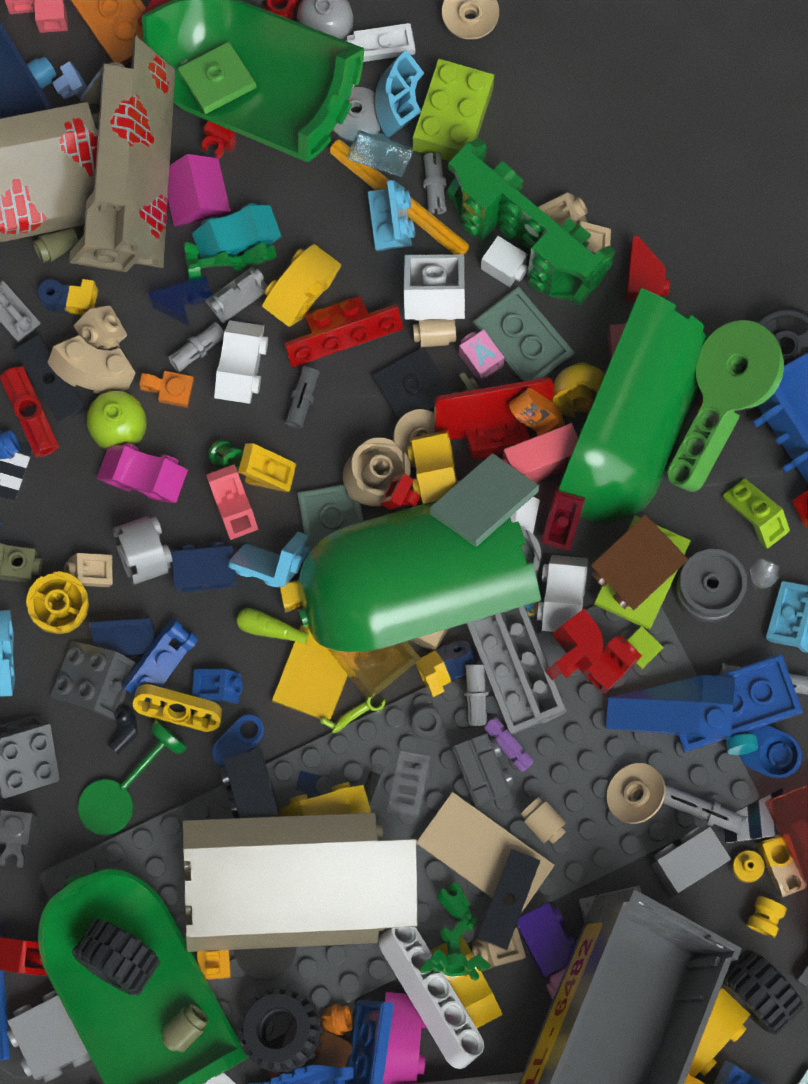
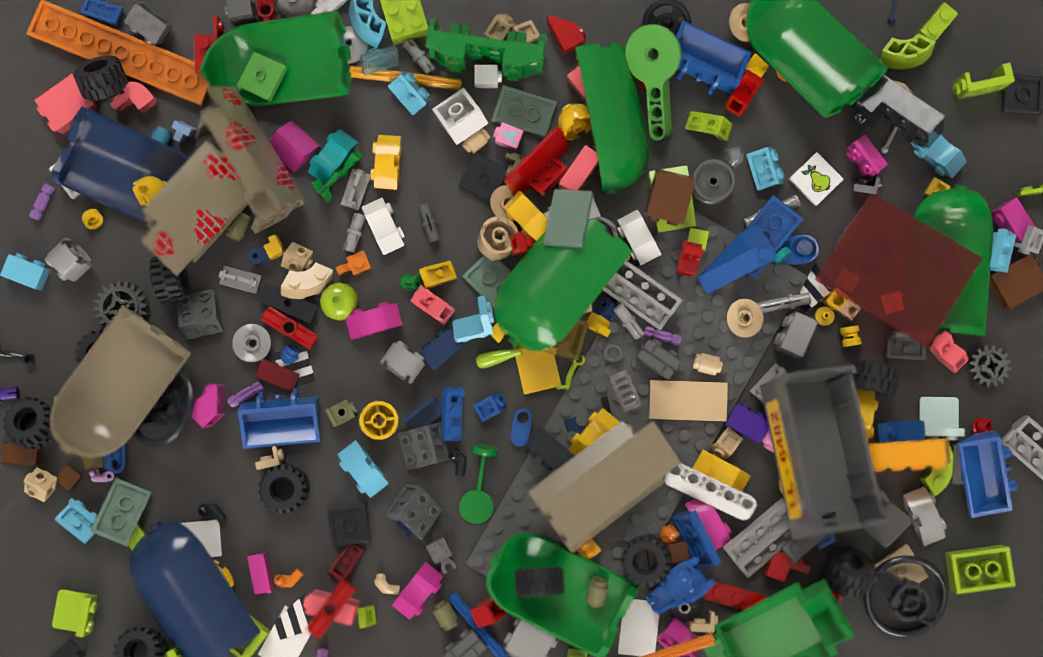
camera: 30 degrees left, 10 degrees up
(91, 569) = (382, 390): tan bracket -> none
(154, 709) = (472, 429): yellow beam -> none
(172, 299) = (323, 215): clear blue slope -> none
(219, 136) = (285, 108): red tile -> none
(341, 328) = (424, 170): red bracket -> none
(455, 963) = (712, 468): green piece -> none
(514, 881) = (719, 429): black tile -> none
(536, 412) = (562, 150): orange leg -> none
(563, 520) = (613, 199): dark red slope -> none
(582, 643) = (669, 260): red brick -> none

